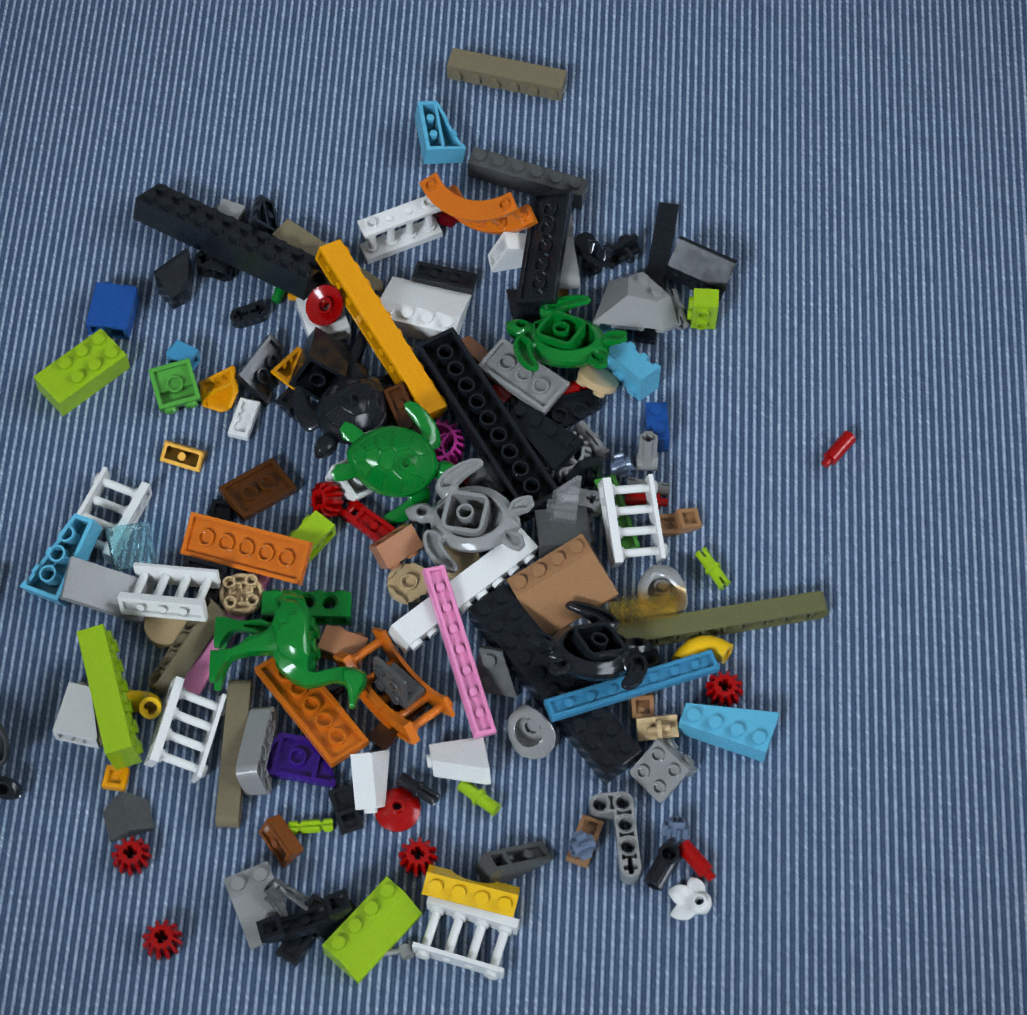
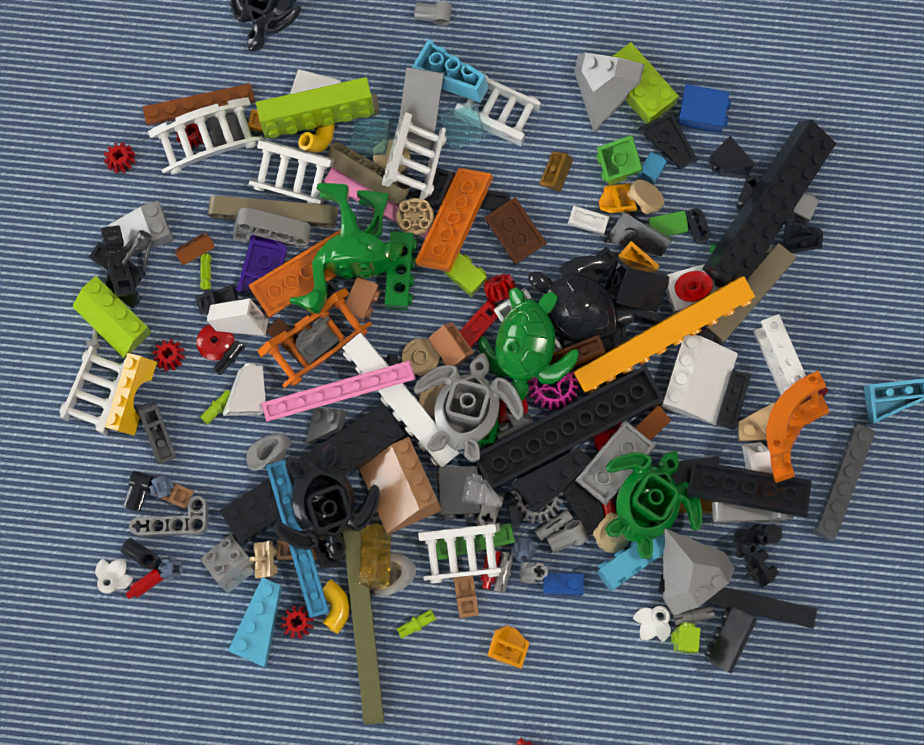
camera: 95 degrees right, 15 degrees up
(83, 403) = (605, 83): none -> light grey wedge
(91, 854) = (169, 110): none -> dark orange plate
(116, 833) = (199, 117): none -> white fence
(141, 647) = (371, 136): none -> clear light blue tile
(150, 342) = (670, 140): none -> black wing
(217, 359) = (646, 196): none -> tan tile
(247, 338) = (670, 223): none -> bright green slope
(470, 254) = (754, 426): none -> tan wing
(579, 877) = (139, 486): none -> black piece
(602, 419) = (573, 534): none -> light grey piece
(689, 347) = (651, 625): none -> white plate
(728, 475) = (508, 647): none -> light orange slope

